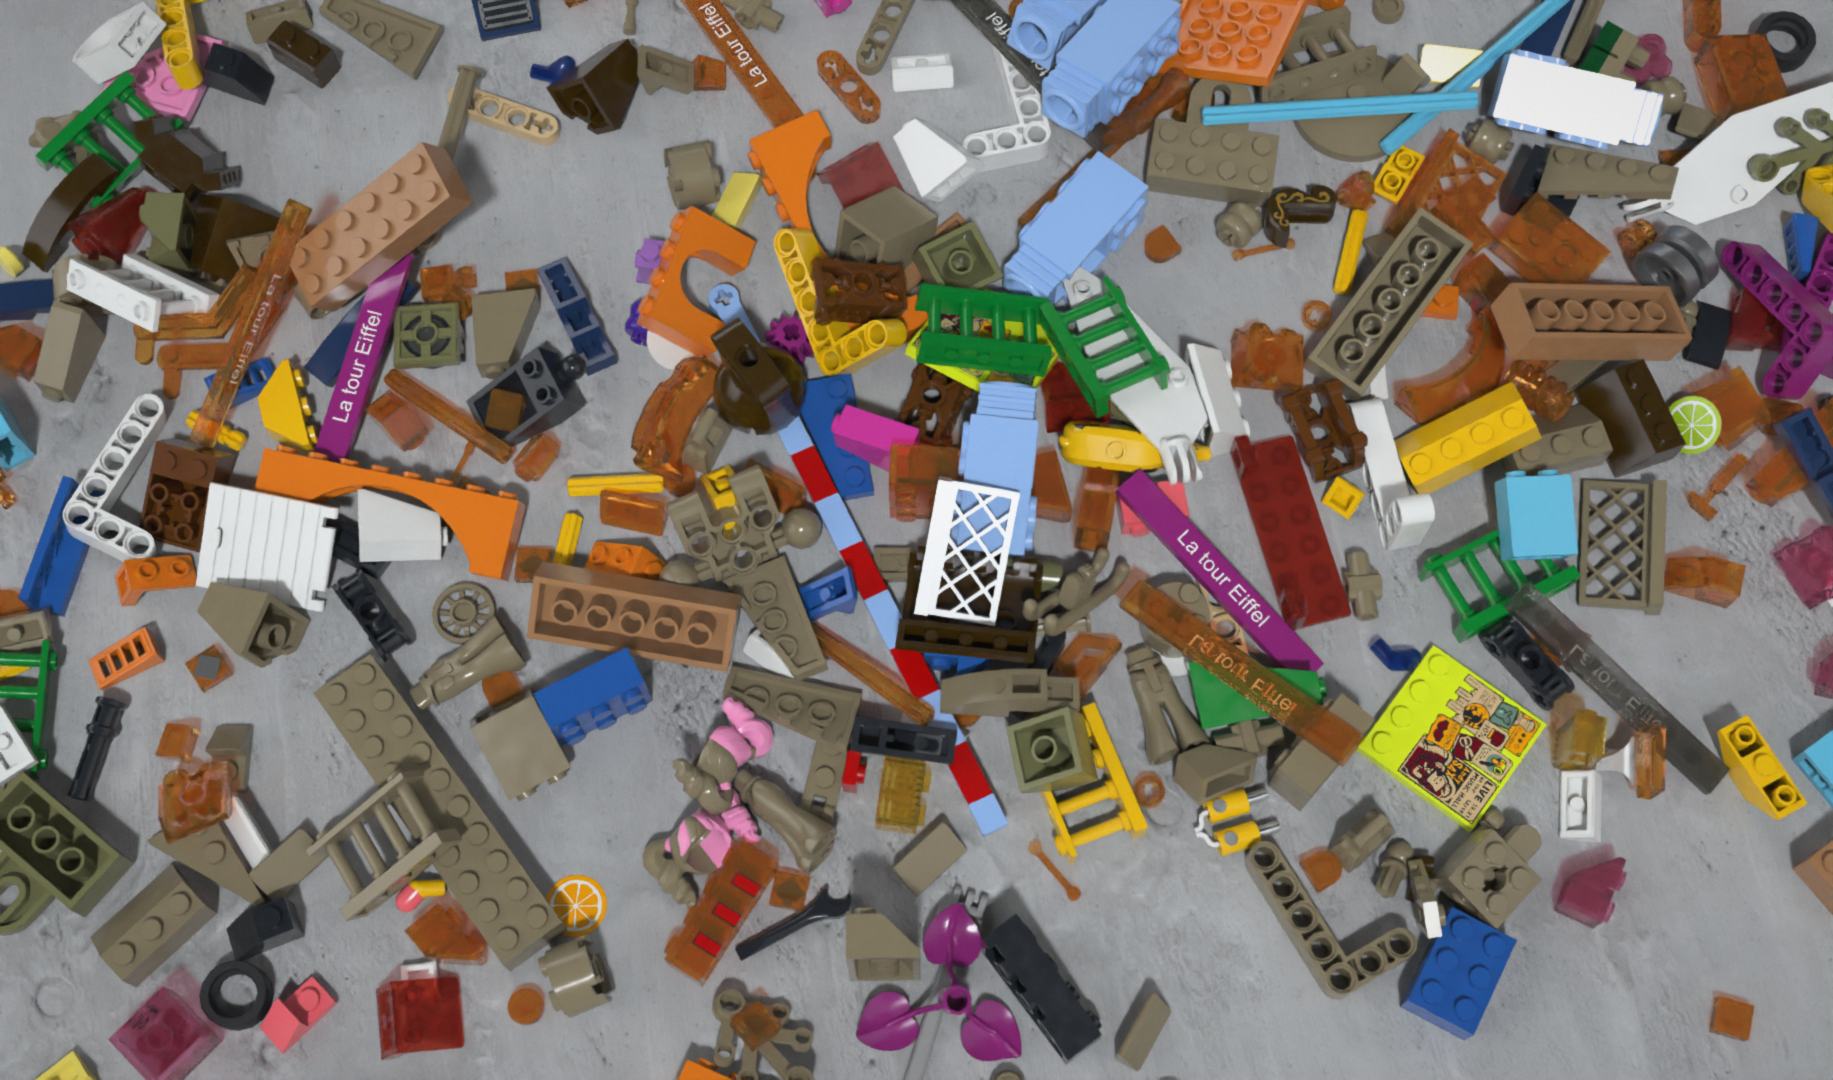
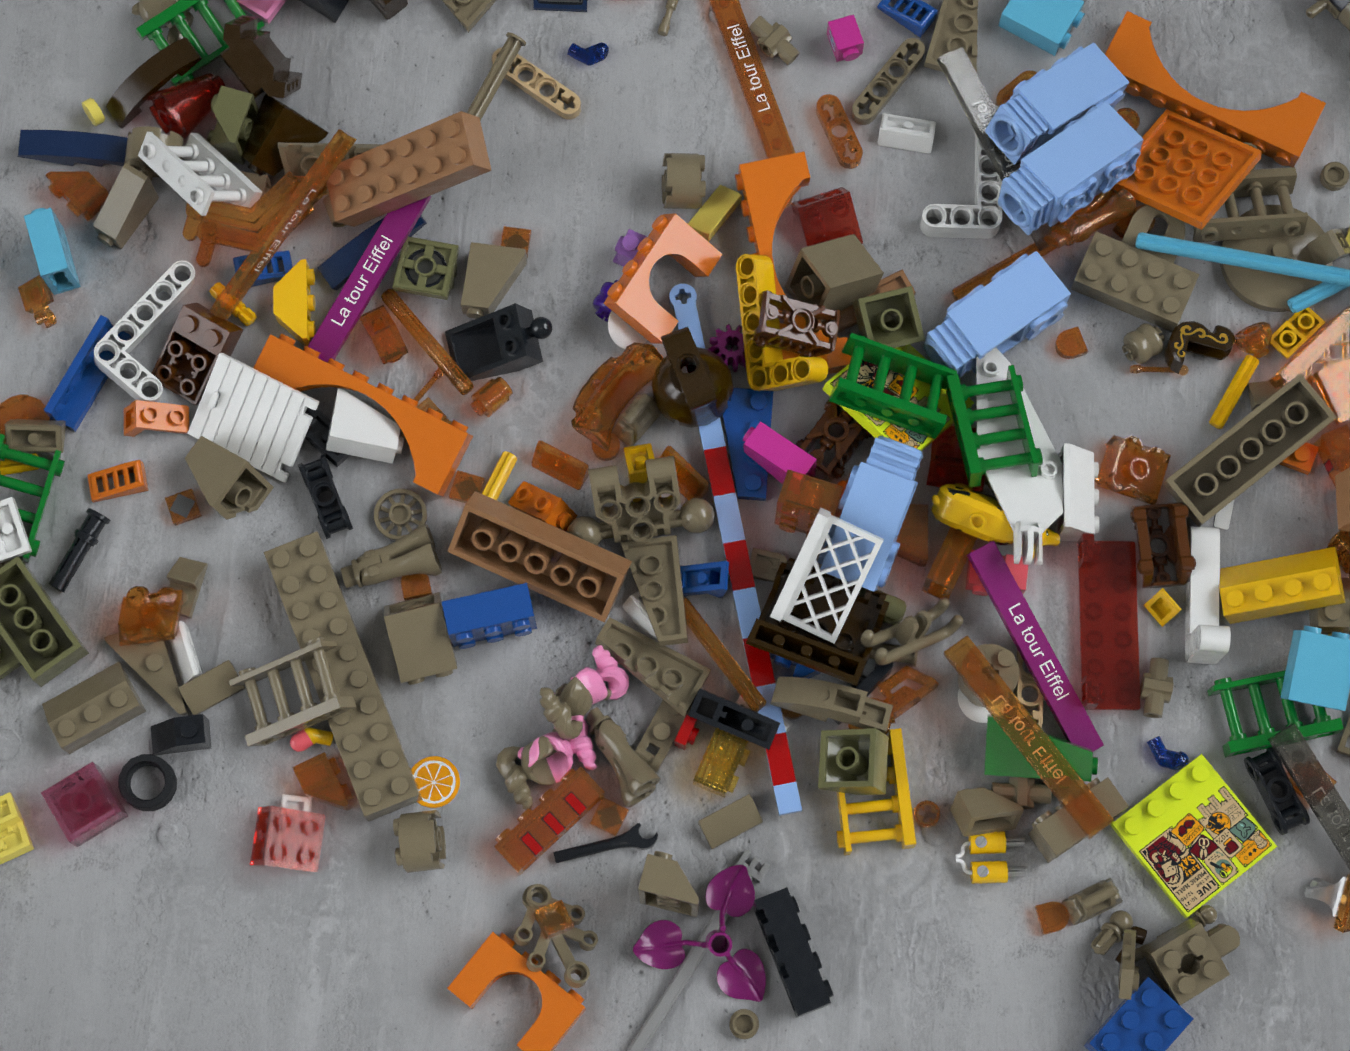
camera: 15 degrees right, 5 degrees up
(178, 742) = (145, 562): clear orange slope -> none
(297, 1015) = (192, 810): coral slope -> none
(442, 279) = (448, 221): clear orange plate -> none
(464, 300) = (460, 239): clear orange tile -> none
(505, 410) = (475, 349): clear orange slope -> none
(526, 1007) = (374, 853): clear orange tile -> none
(576, 315) = (555, 280): dark blue slope -> none
(599, 87) = (624, 79): dark brown slope -> none
(617, 483) = (551, 436): yellow axle -> none
(664, 70) = (684, 79): dark tan slope -> none
(709, 74) = (719, 89): clear orange slope -> none
(935, 159) = (895, 218): white slope -> none
(1073, 893) = (840, 880): clear orange hinge -> none
(1143, 1032) = (866, 1009): dark tan slope -> none
(1156, 690) = (954, 730): dark tan piece -> none
(1317, 930) = (1032, 966): dark tan beam -> none
(1321, 307) = (1194, 446): clear orange bush -> none
(1471, 381) = (1301, 536): clear orange windscreen -> none
(1580, 741) = (1298, 869): clear yellow brick -> none
(1581, 805) = (1285, 921): white slope -> none
(1589, 893) = (1269, 994): clear pink slope -> none

